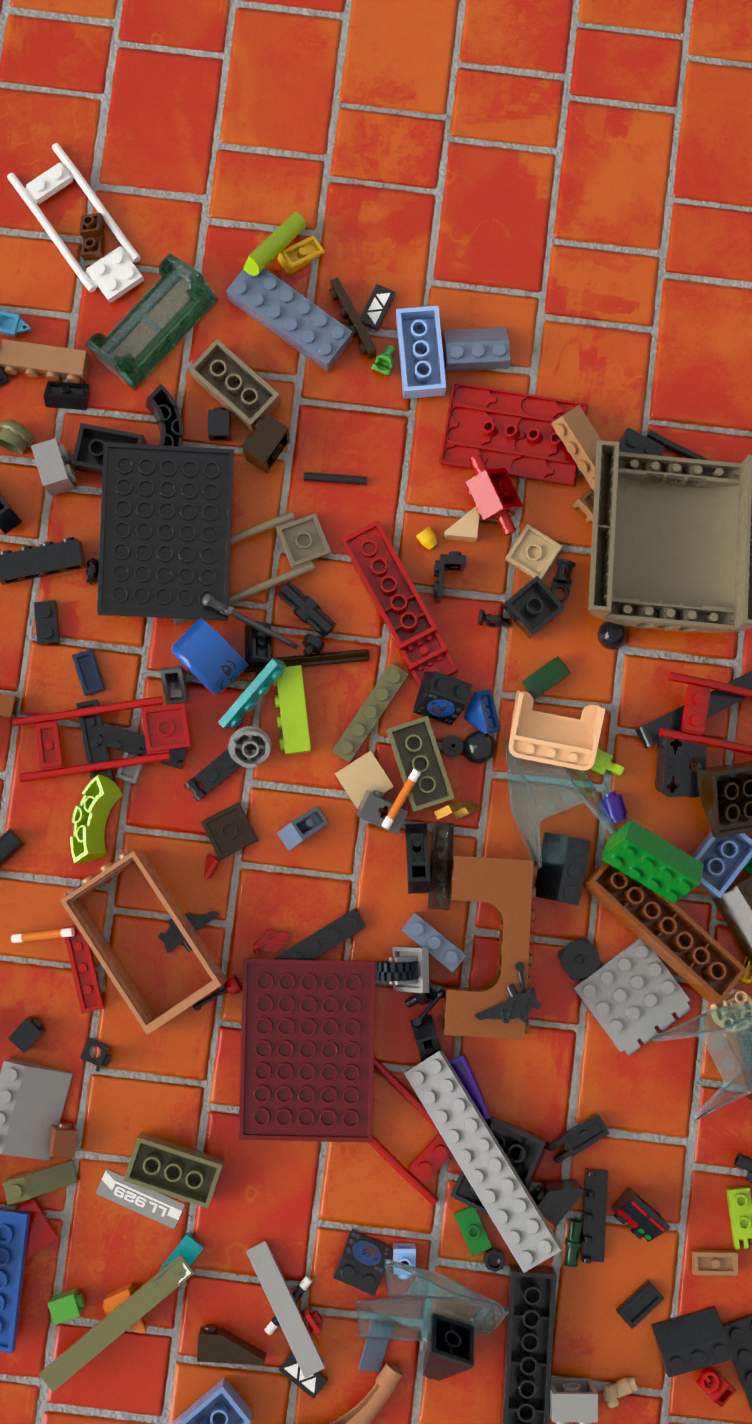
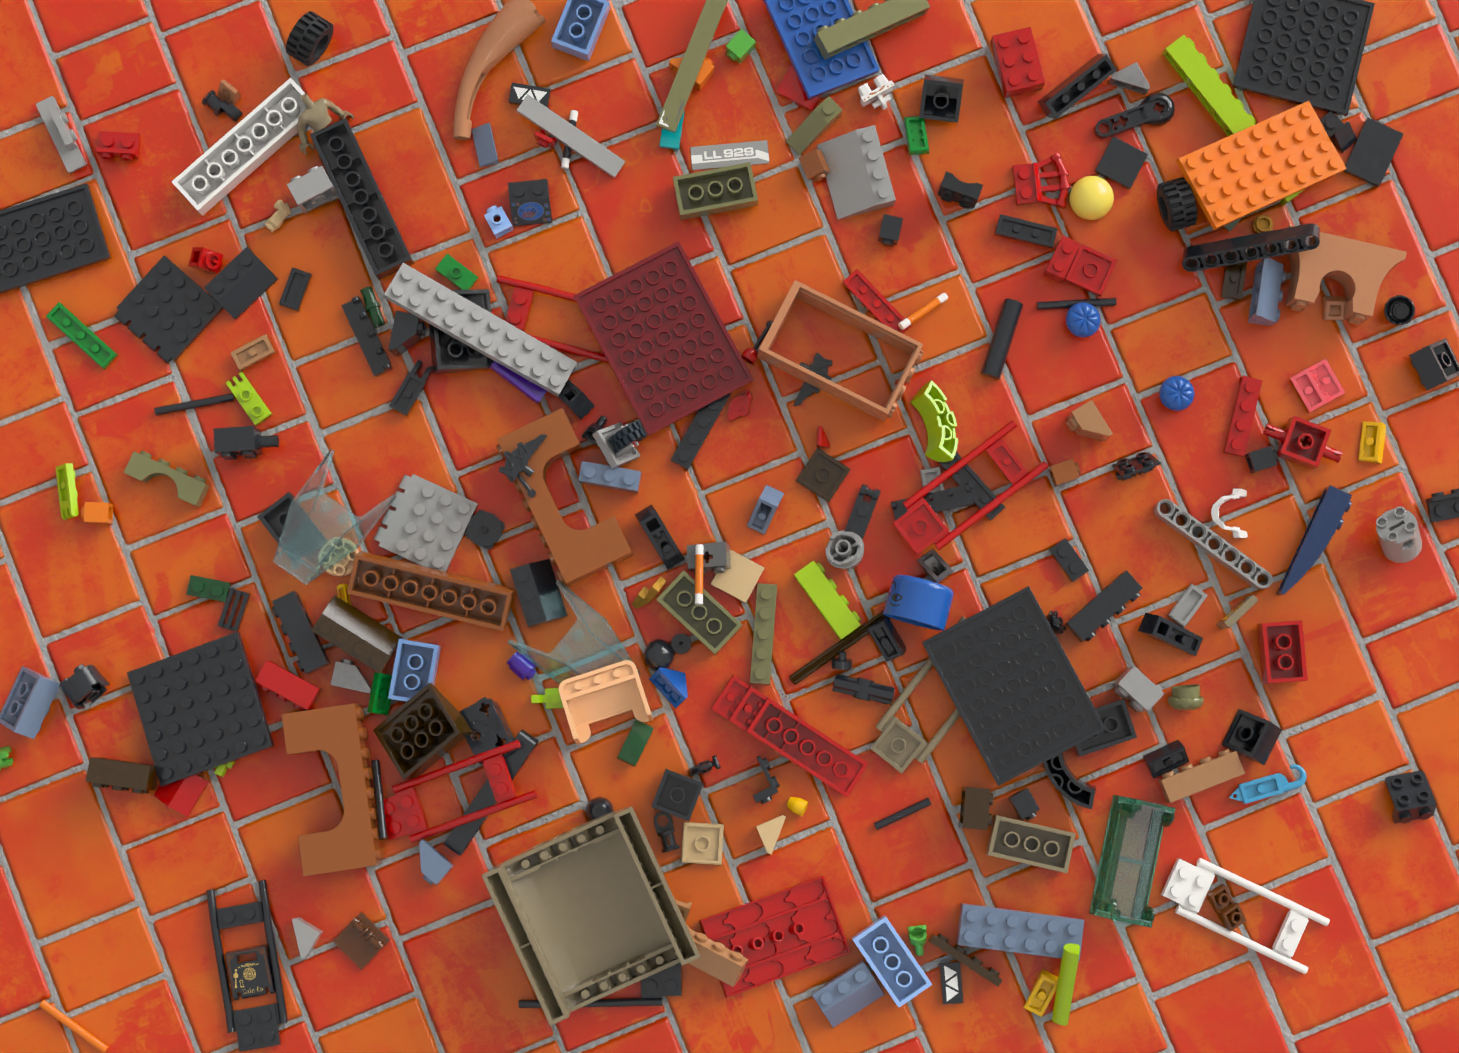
camera: 155 degrees right, 0 degrees up
(88, 672) = (1011, 538): dark blue tile -> none
(104, 1058) = (819, 244): black bracket -> none
(222, 1346) = (600, 83): dark brown slope -> none
(230, 611) = (923, 648): dark grey sword -> none
(254, 691) = (865, 598): teal plate -> none
(417, 1021) = (588, 406): black hinge -> none
(417, 1297) = (459, 196): clear light blue windscreen -> none
(441, 697) = (712, 677): black slope -> none
(441, 866) = (637, 541): clear smoke plate -> none
(448, 1348) = (429, 175): black slope -> none
(493, 494) = (762, 871): red brick -> none
(494, 1259) = (428, 260): black tile -> none
(639, 1215) = (332, 356): black slope -> none
(652, 861) = (469, 635): green brick -> none

